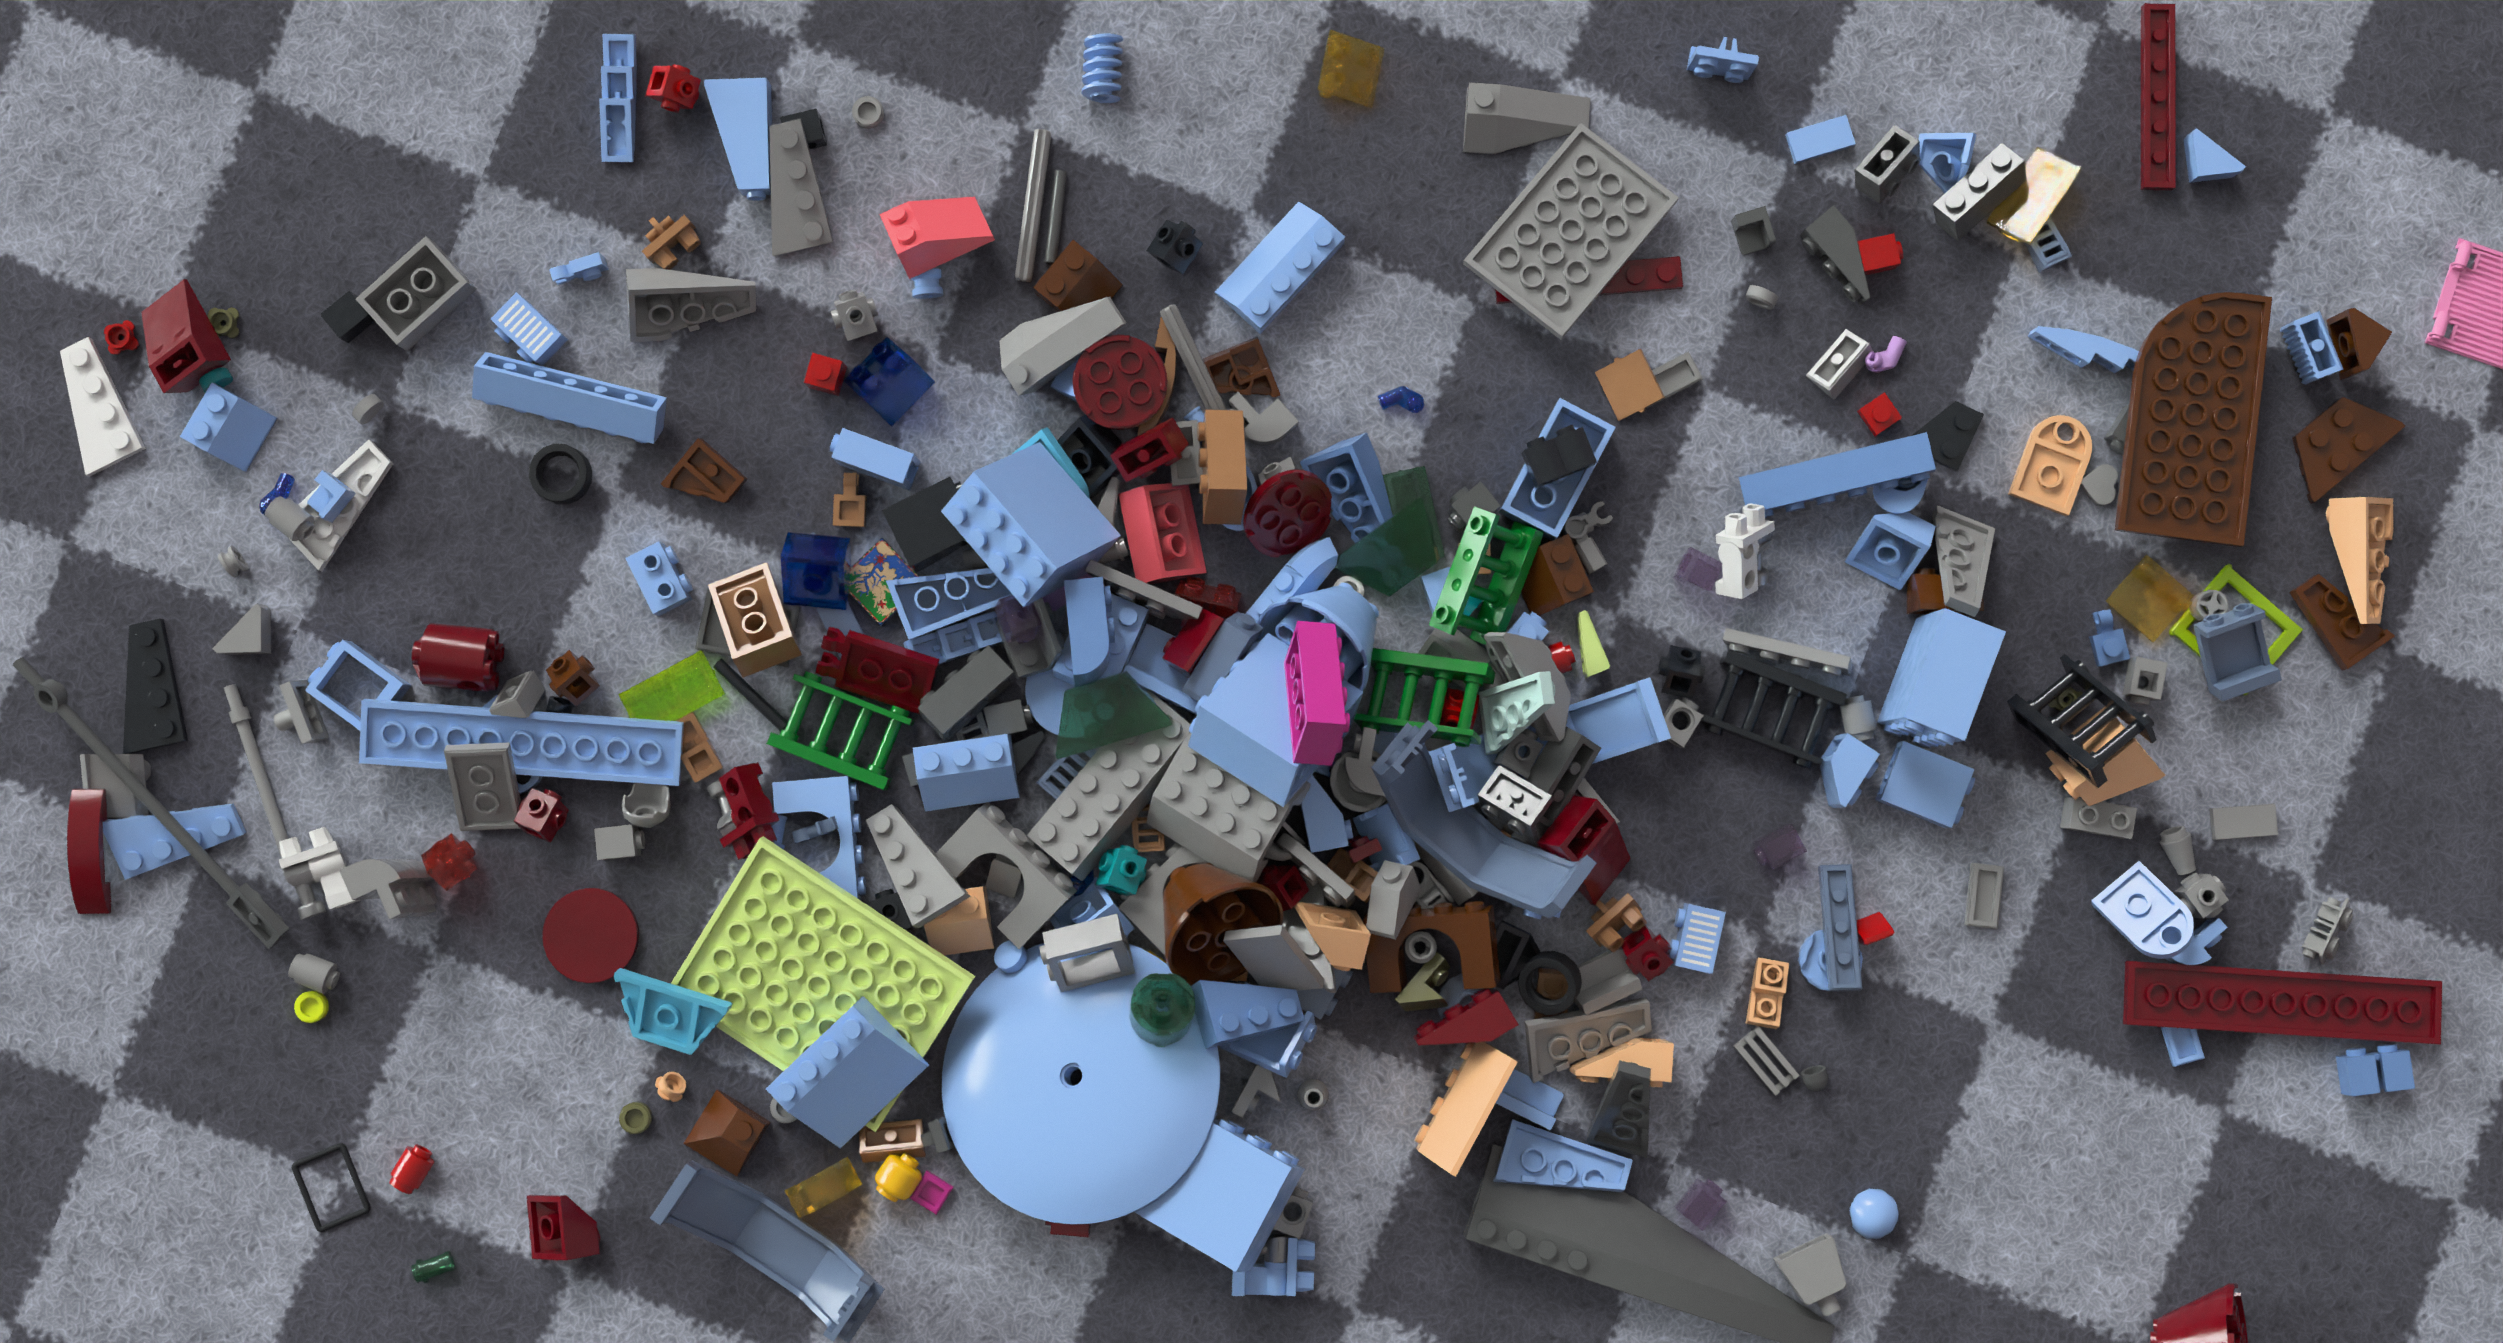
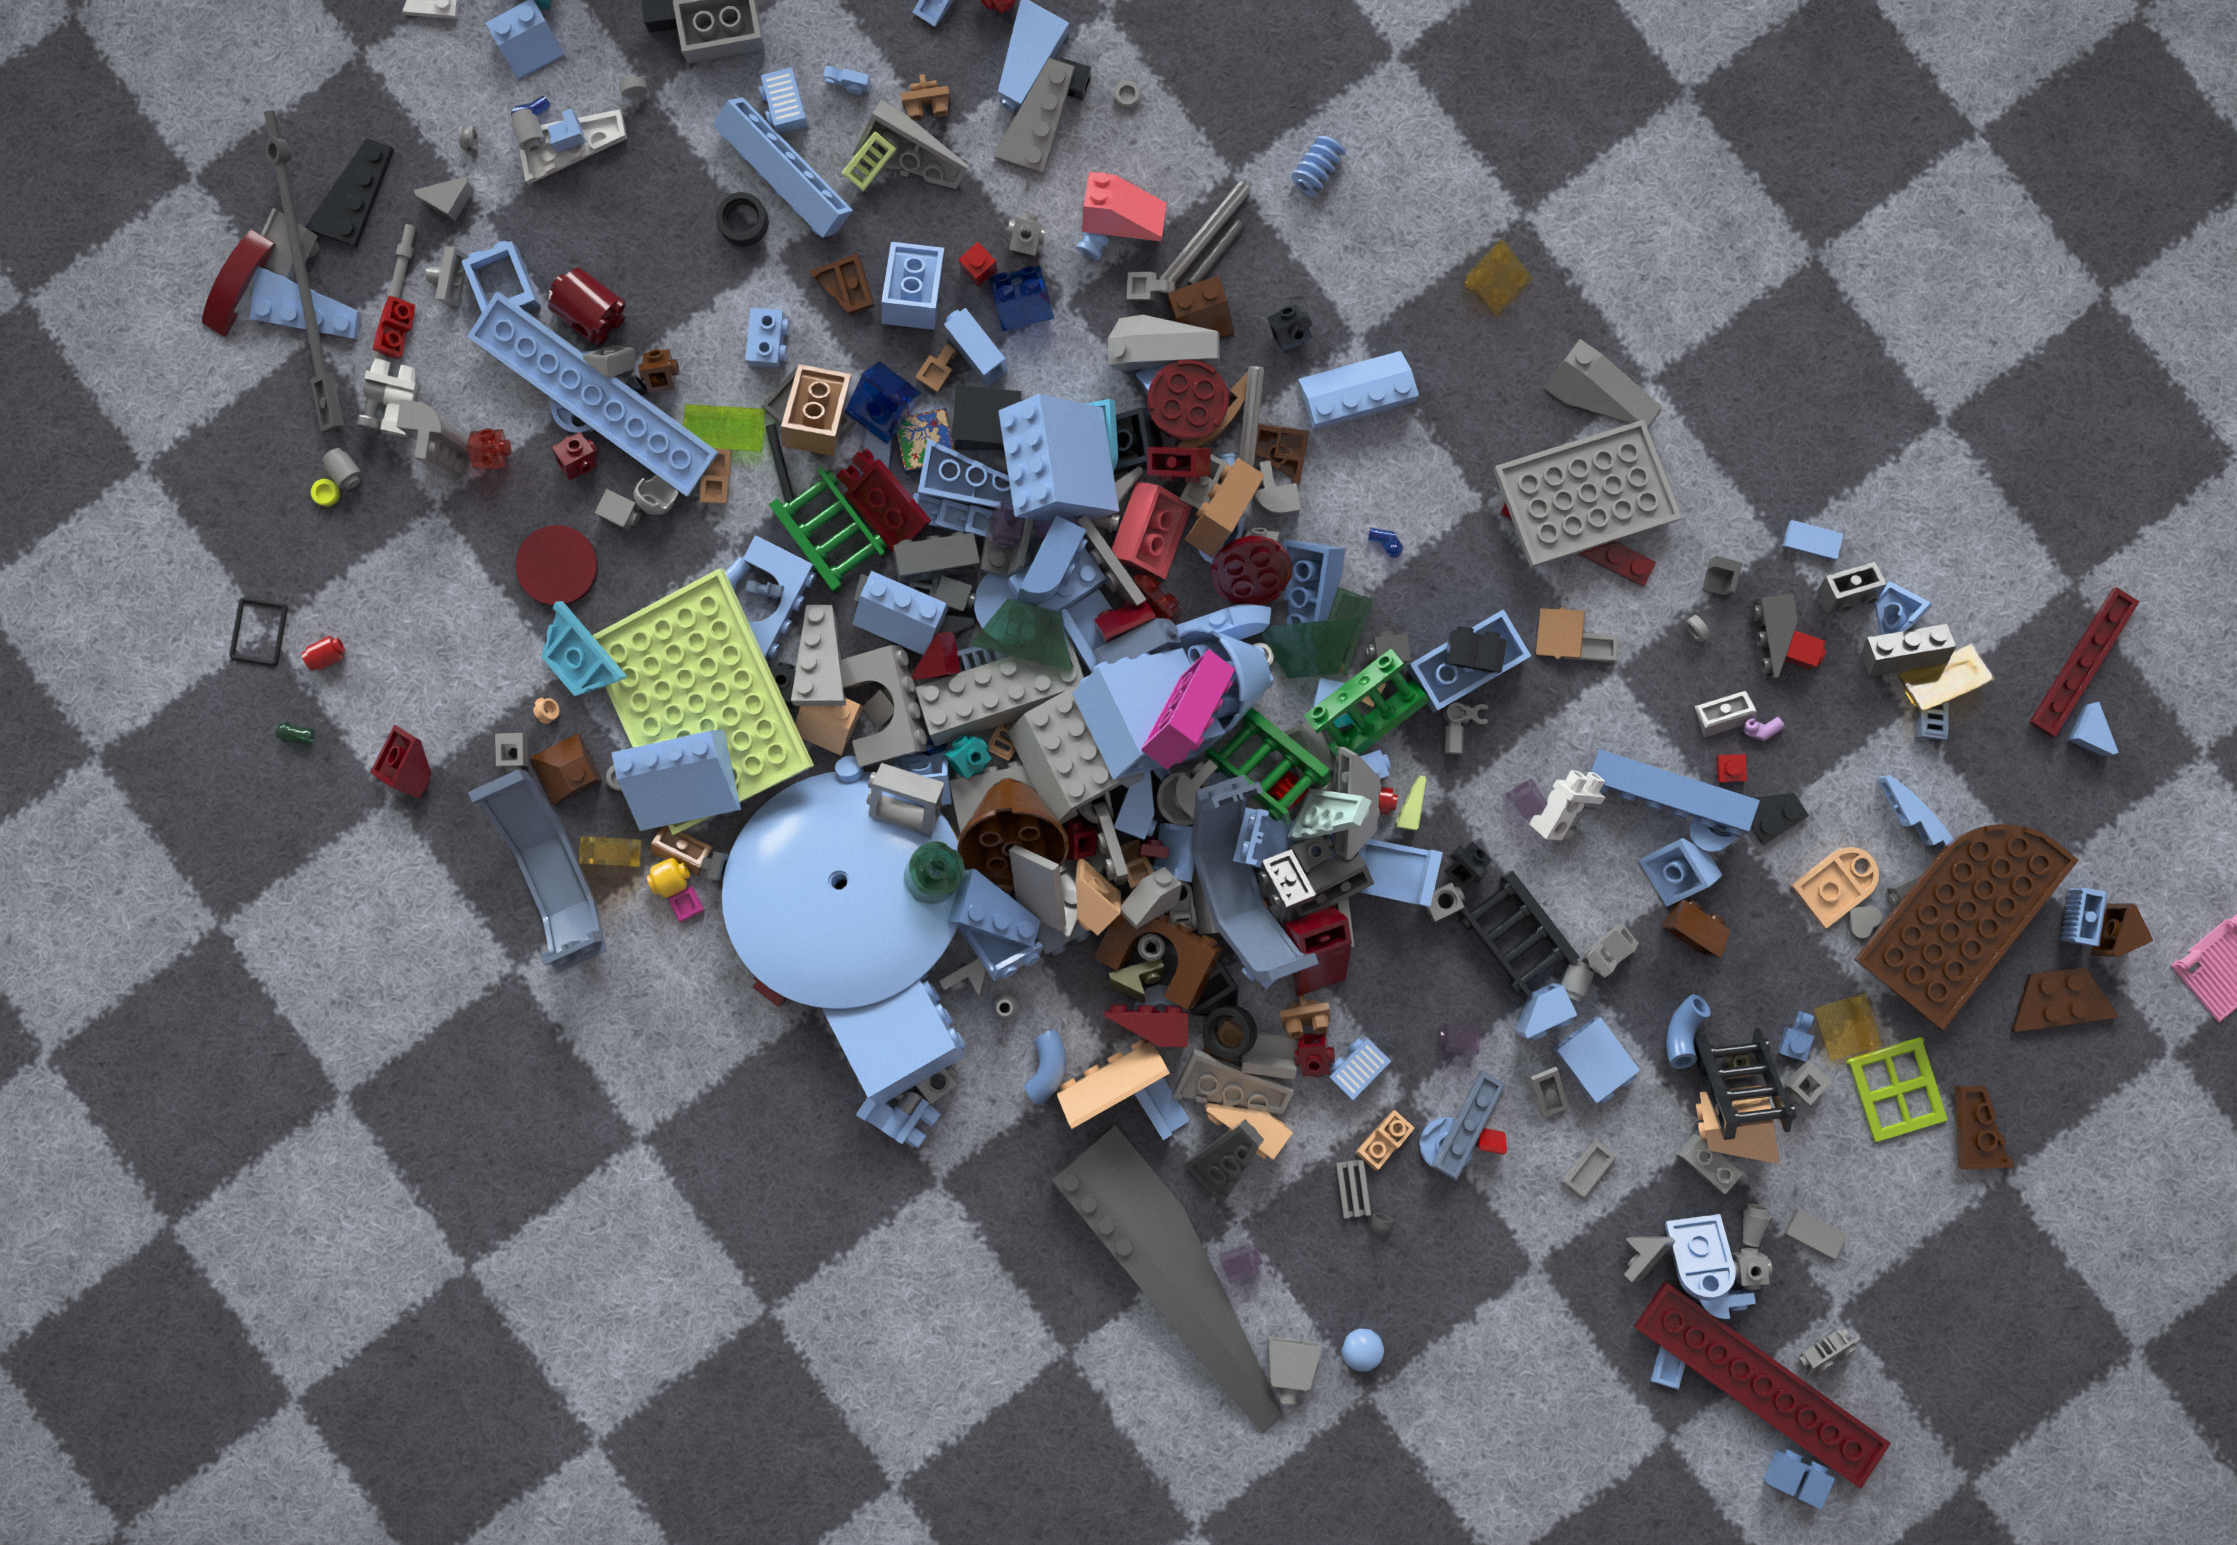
camera: 30 degrees right, 0 degrees up
(276, 799) = (392, 327): none -> red slope
(483, 785) = (546, 408): light grey tile -> none
(635, 1117) = (507, 717): olive tile -> none
(651, 364) = (853, 177): none -> yellowish green slope
(651, 1148) = (505, 744): none -> light grey brick
(744, 809) = (723, 541): dark red hips -> none
(772, 435) = (912, 285): none -> light blue slope
(1004, 292) = (1144, 285): none -> light grey plate
(1032, 792) = (939, 658): none -> dark red slope
(1396, 1130) = (1051, 1067): none -> medium blue cylinder
(1553, 1160) = (1153, 1165): light blue wing -> none
(1555, 577) = (1418, 739): reddish brown slope -> none
(1722, 62) = (1776, 438): light blue piece -> none
(1798, 655) = (1561, 905): light grey wing -> none
(1872, 667) = (1610, 950): none -> light grey brick
(1898, 845) = (1548, 1092): none -> light grey slope
(1940, 678) = (1657, 987): light blue brick -> none
(1963, 558) = (1728, 910): light grey wing -> none
(1994, 710) = (1683, 1030): none -> medium blue cylinder
(2094, 941) = (1651, 1251): none -> light grey slope
(2216, 604) = (1894, 1059): light grey wheel -> none
(2235, 652) = (1887, 1104): sand blue panel -> none
(2359, 536) = (2033, 1076): light nougat wedge -> none

